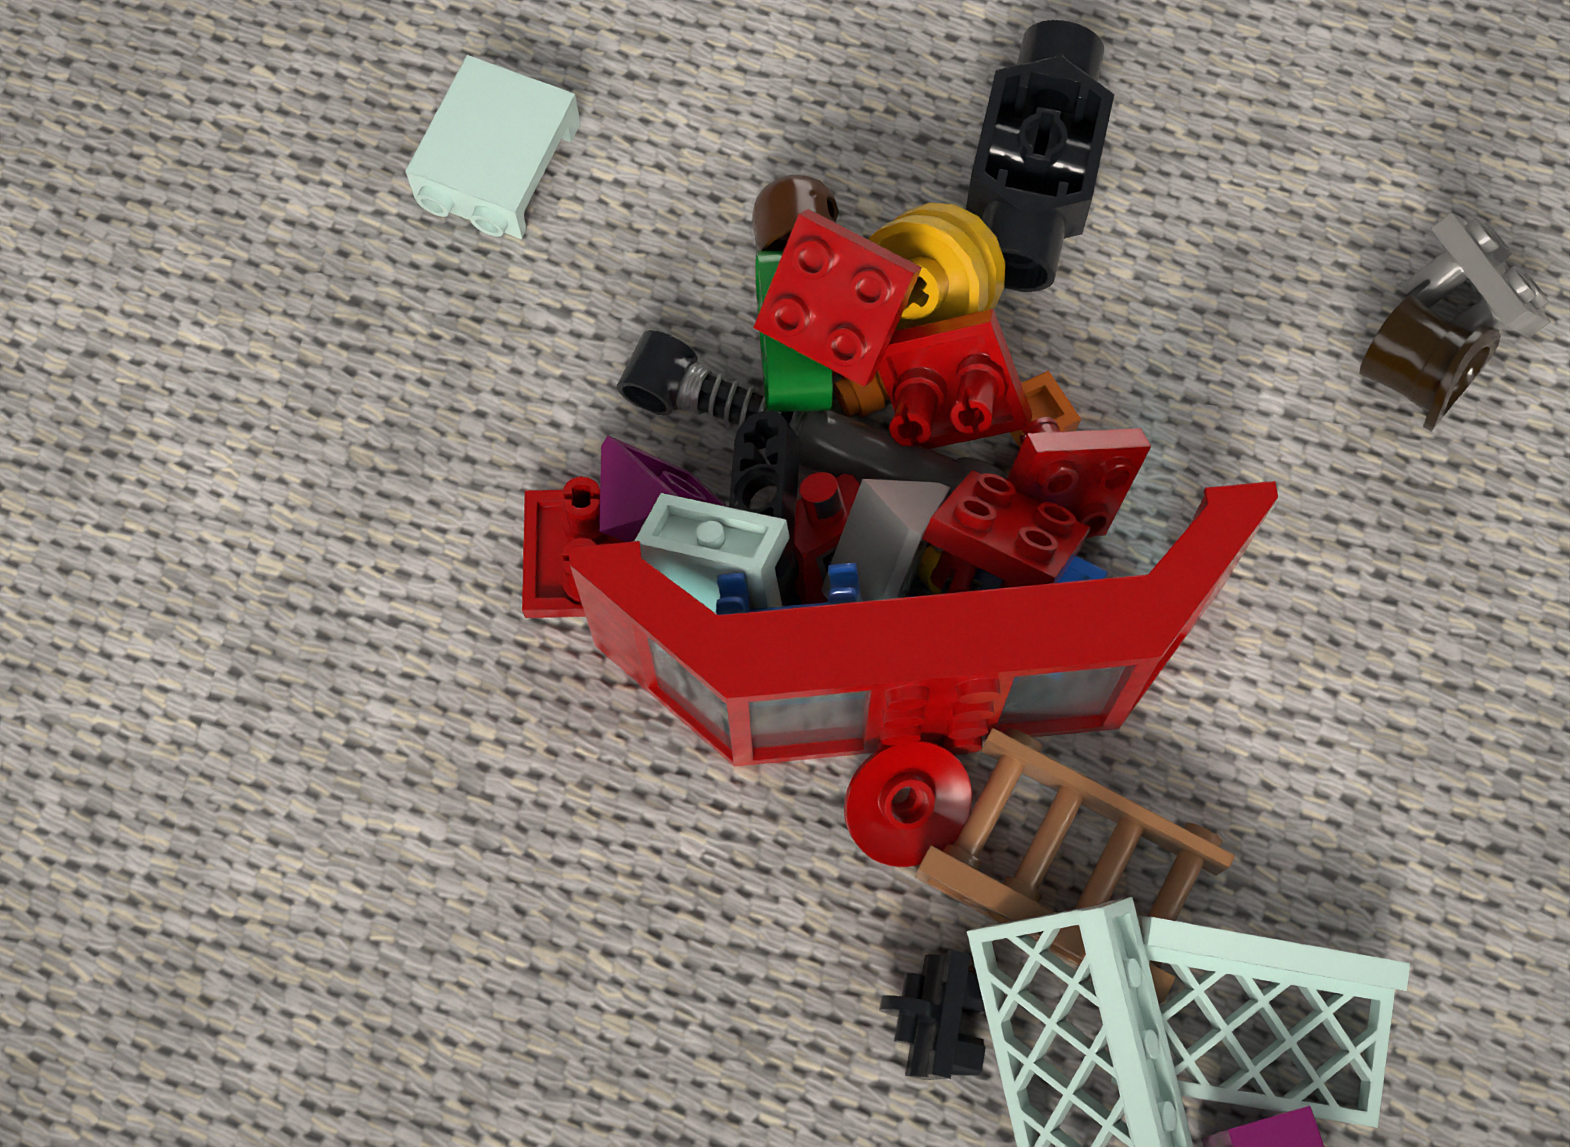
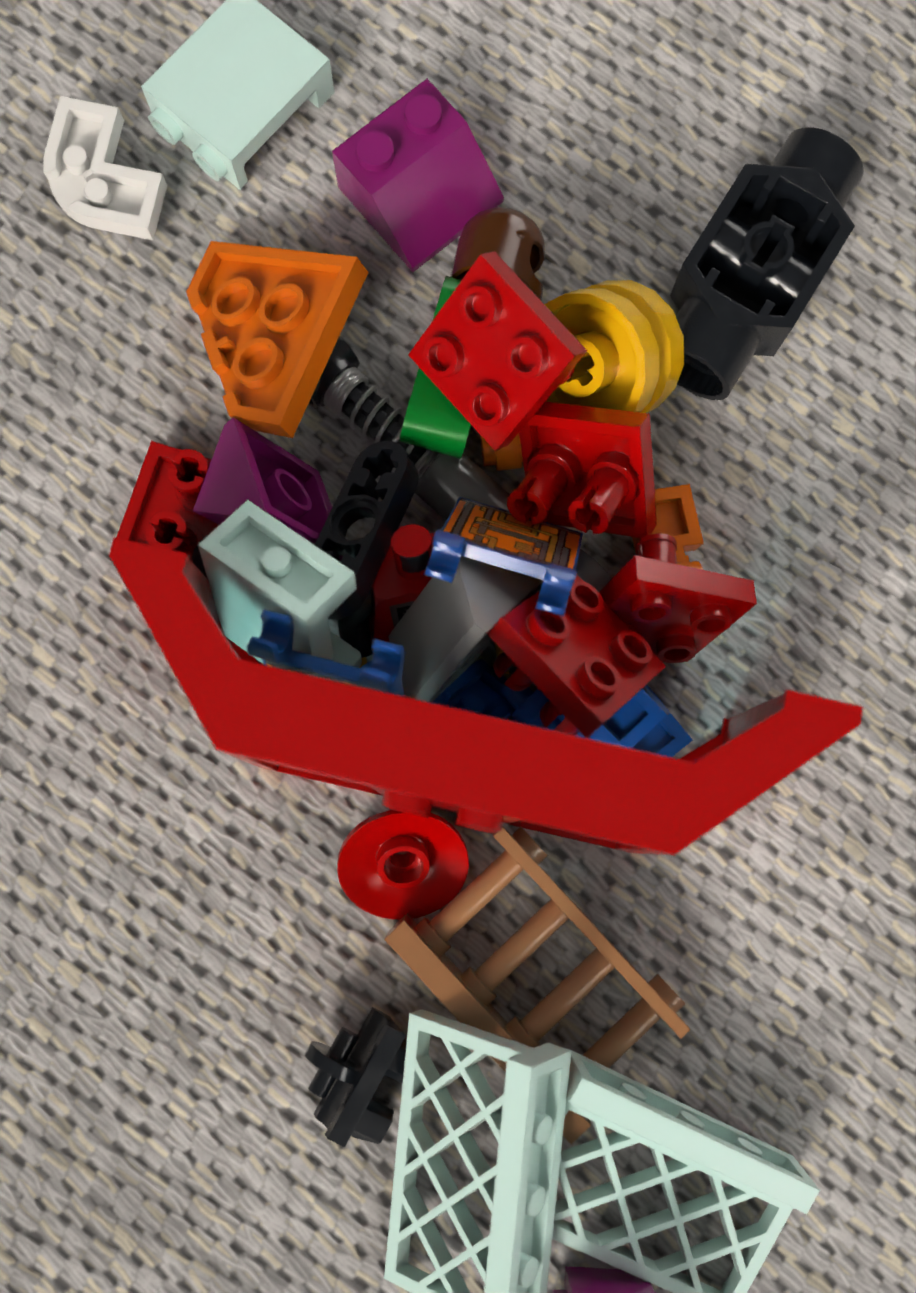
camera: 15 degrees right, 10 degrees up
(383, 279) = (86, 180): none -> white plate
(607, 345) = (272, 325): none -> orange plate
(691, 174) = (416, 174): none -> magenta slope
(928, 460) = (502, 541): none -> flag

